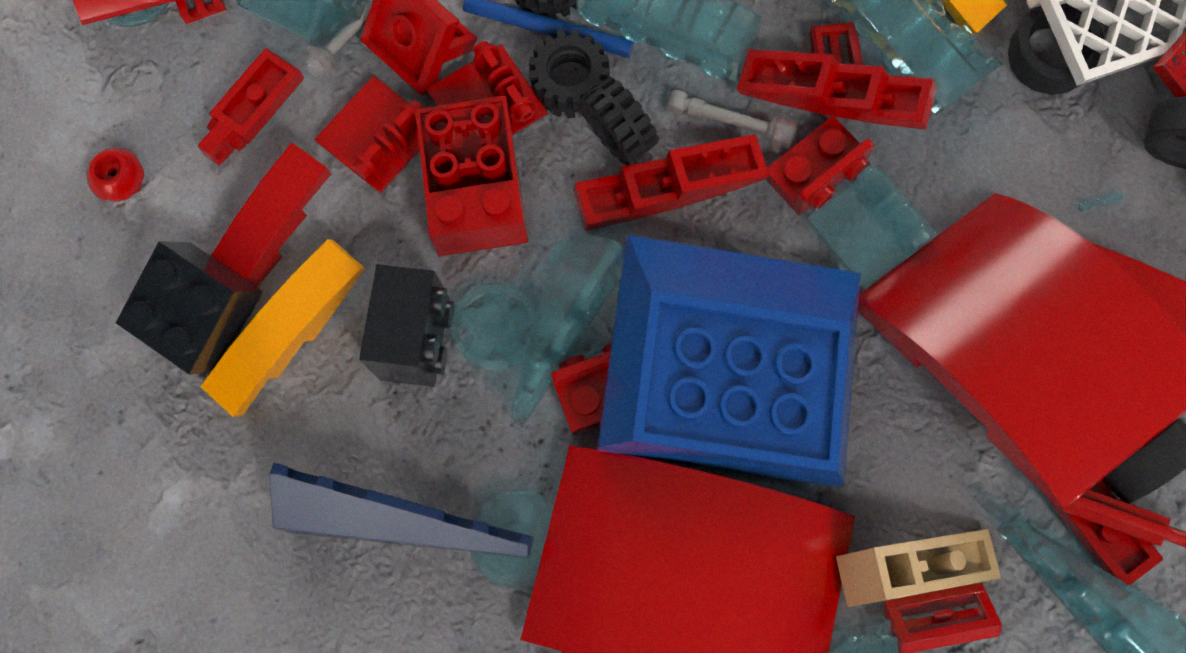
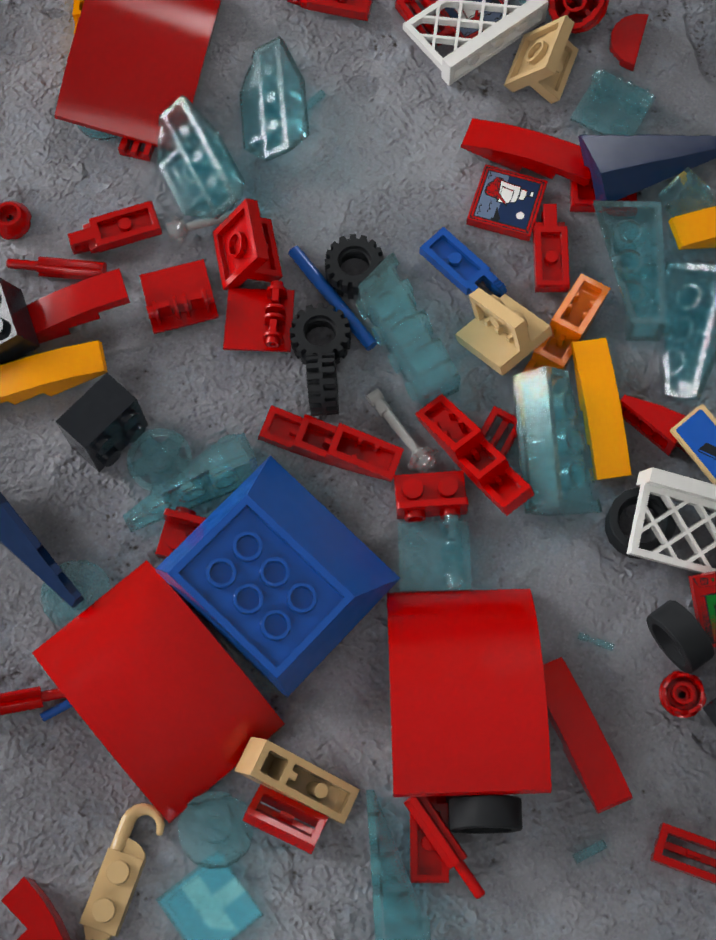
camera: 30 degrees right, 5 degrees down
(216, 189) = (60, 267): none -> red axle
(470, 176) = (210, 359): red slope -> none

